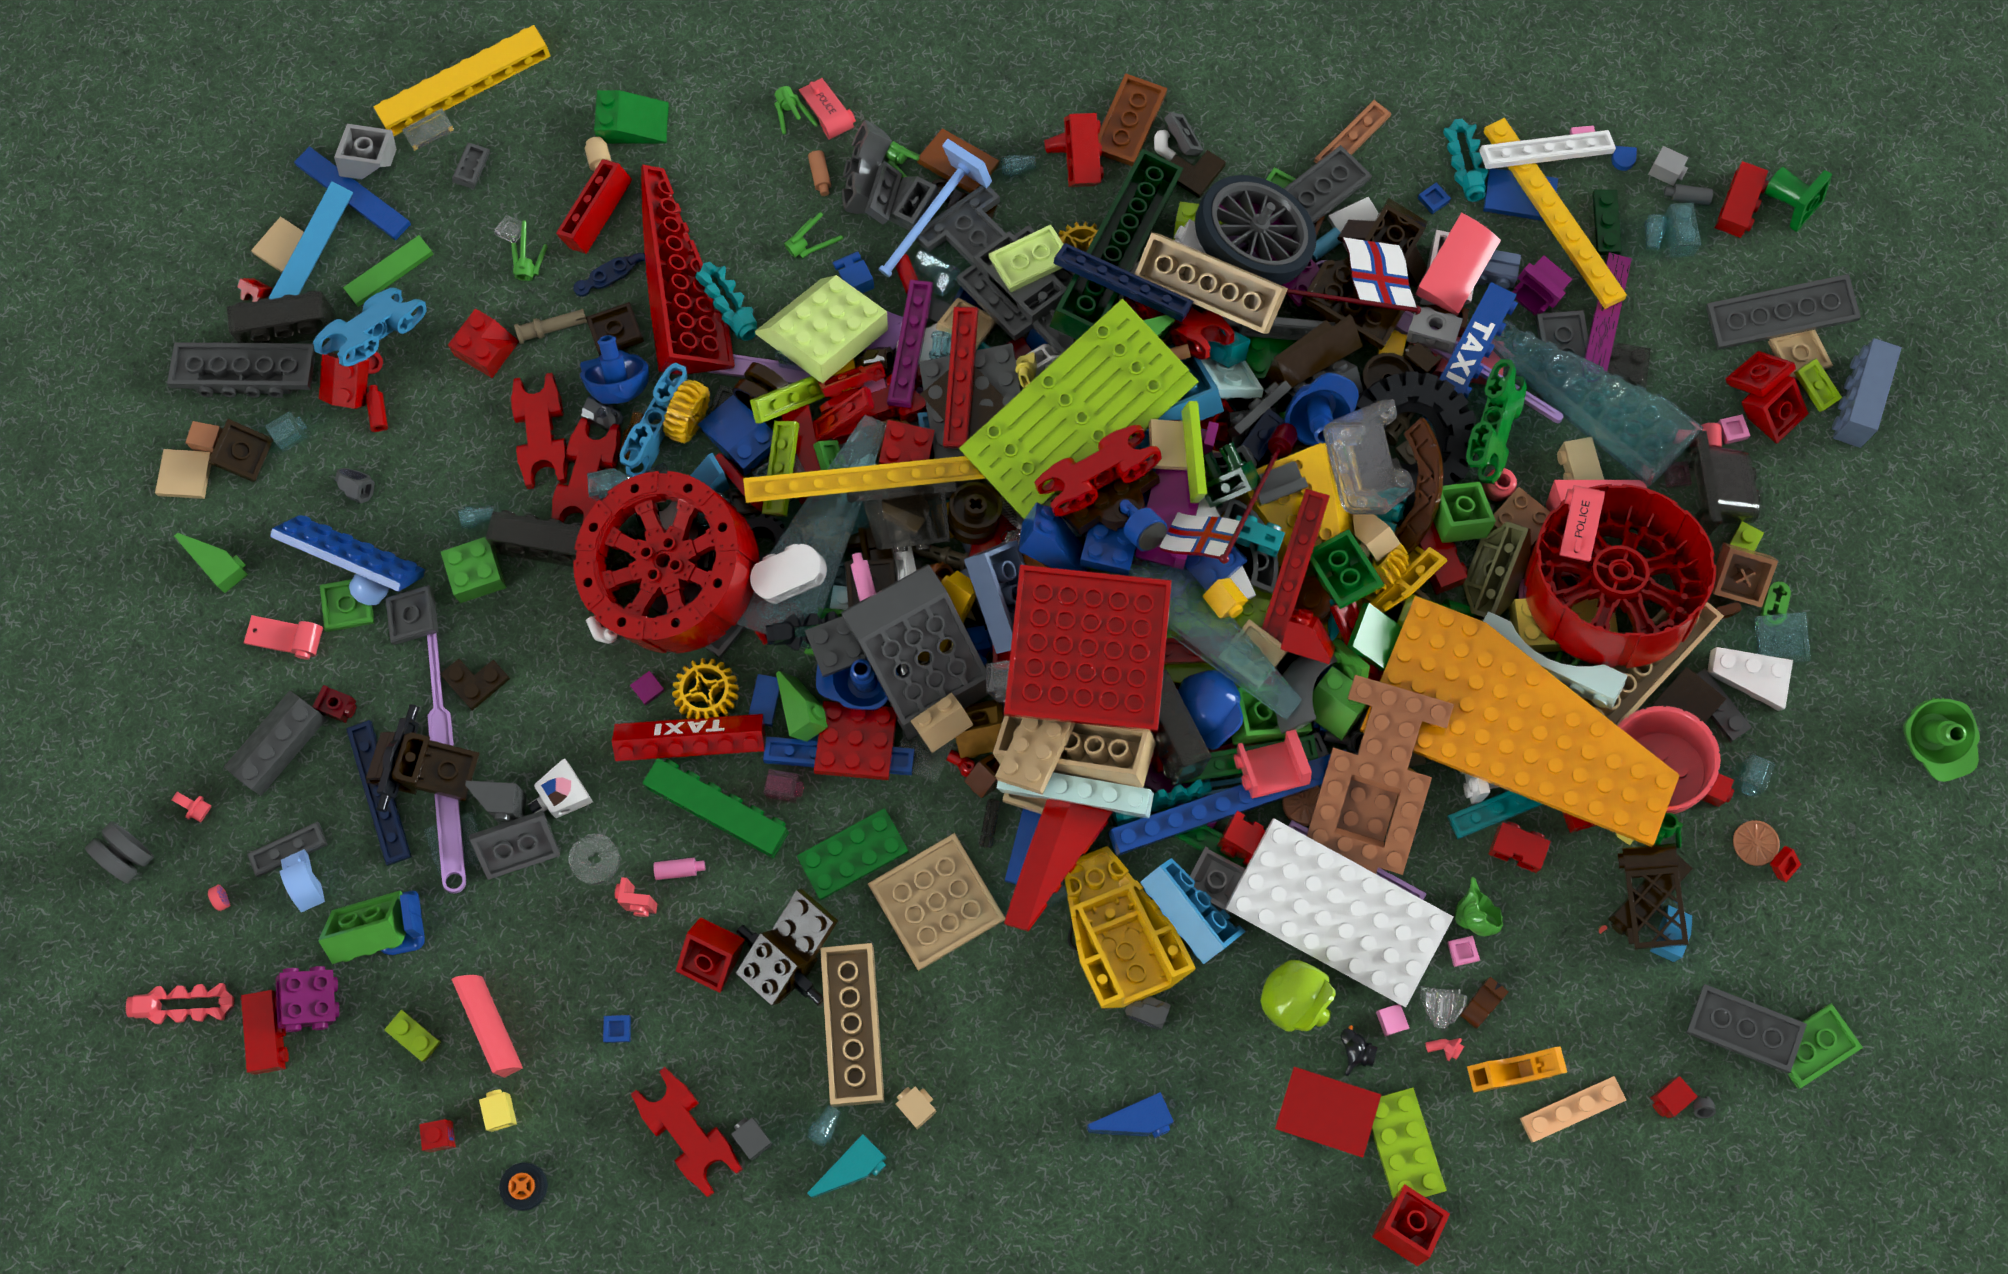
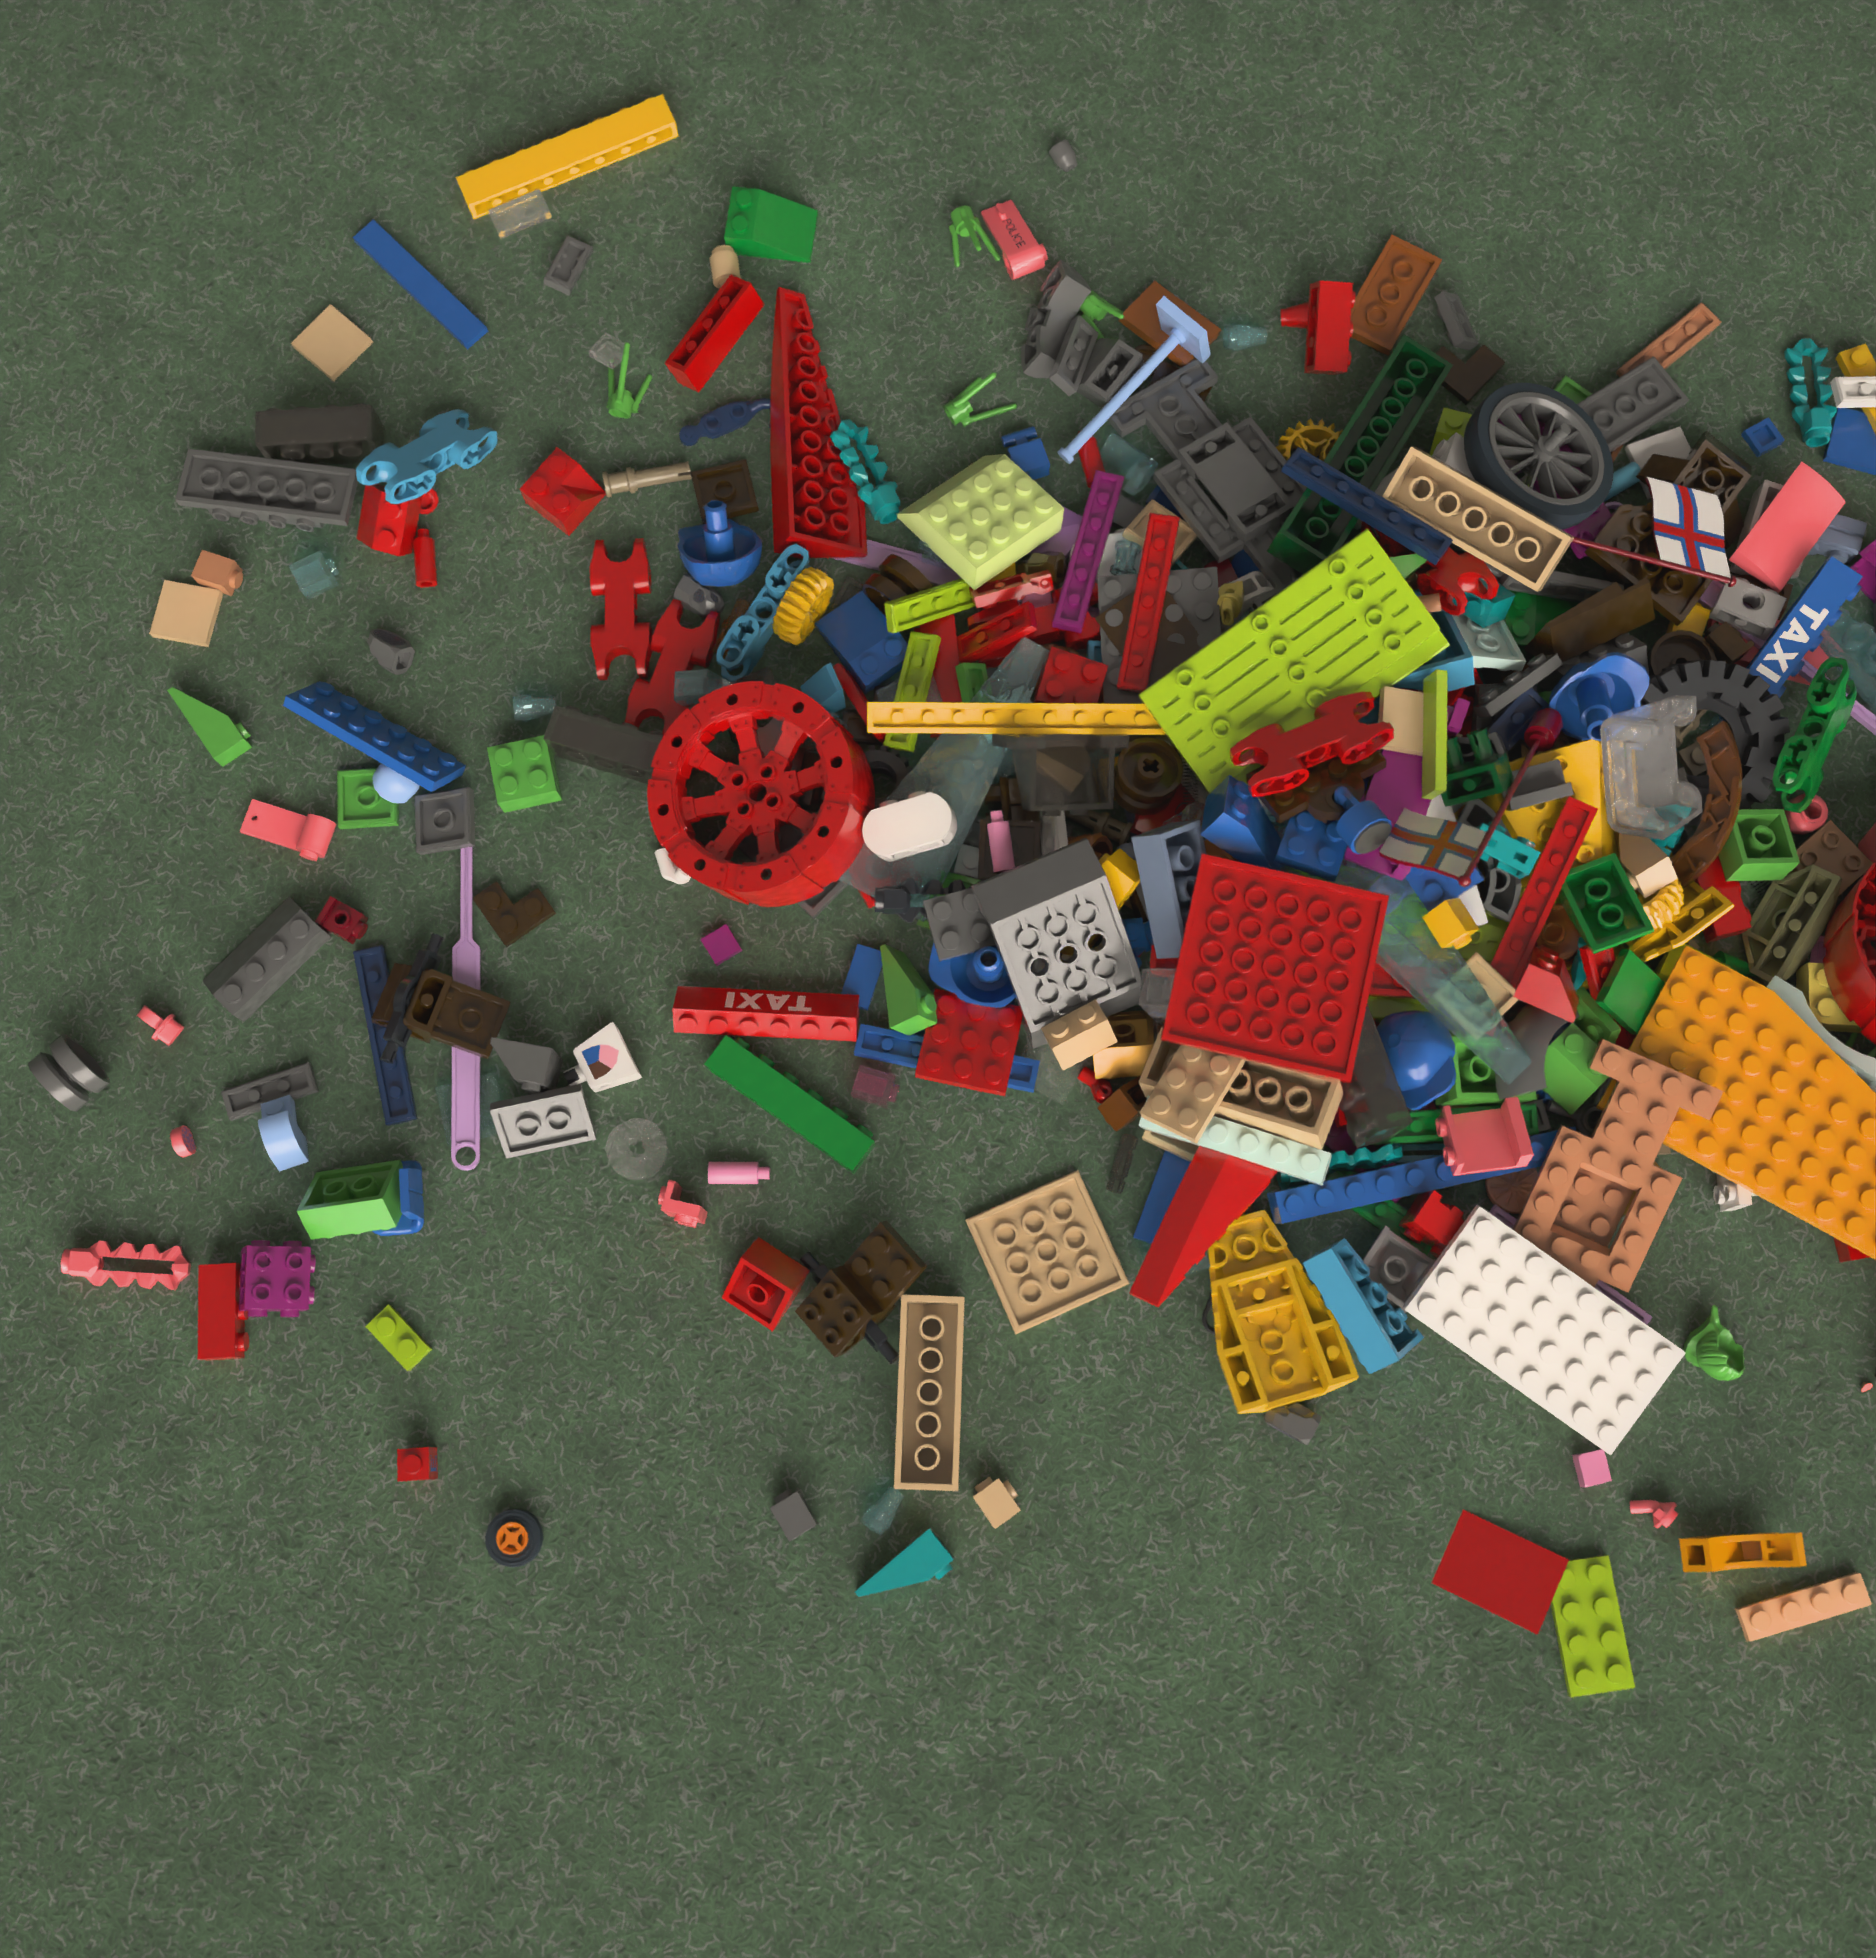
camera: 10 degrees right, 5 degrees up
(240, 450) = (257, 593): dark brown plate -> none
(253, 287) = (292, 391): red tile -> none
(312, 241) = (366, 341): dark azure tile -> none
(364, 151) = (439, 232): light grey slope -> none
(388, 270) = (455, 387): bright green tile -> none
(487, 1024) = (489, 1337): coral slope -> none
(497, 1110) = (492, 1442): light yellow brick -> none
(617, 1029) = (644, 1360): blue tile -> none
(673, 1115) = (727, 1516): red piece -> none
(696, 694) = (778, 961): yellow gear -> none
(819, 172) = (996, 320): nougat cylinder -> none
(852, 854) = (950, 1180): green plate -> none
(860, 39) = (1063, 156): none -> dark grey hose
(1027, 258) = (1247, 460): yellowish green tile -> none
(1139, 1119) = (1274, 1553): blue slope -> none
(1161, 145) = (1426, 332): white arm -> none
(1297, 996) = (1481, 1428): lime piece -> none
(1357, 1050) = (1545, 1500): black animal -> none
(1411, 1225) = (1588, 1726): red slope -> none
(1442, 1005) = (1657, 1459): clear brick -> none
(1463, 951) = (1689, 1393): bright pink tile -> none
(1483, 1002) = (1708, 1461): reddish brown leg -> none
(1489, 813) = (1741, 1225): teal tile -> none
(1519, 845) = (1784, 1275): red brick -> none

